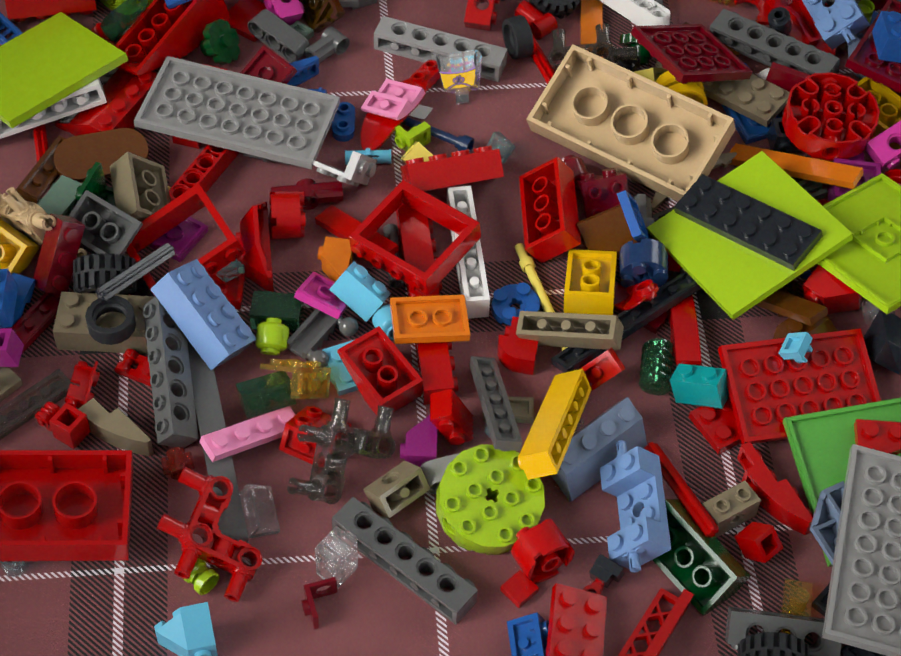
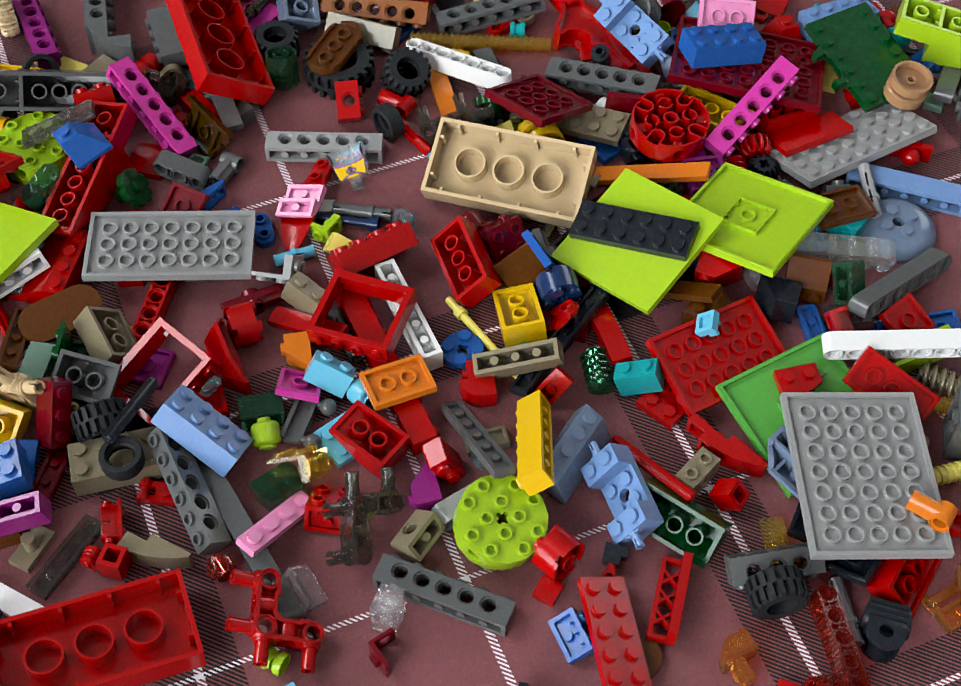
camera: 15 degrees left, 0 degrees up
(360, 196) = (302, 293): none -> dark tan brick
(457, 127) = (362, 211): none -> dark grey pin

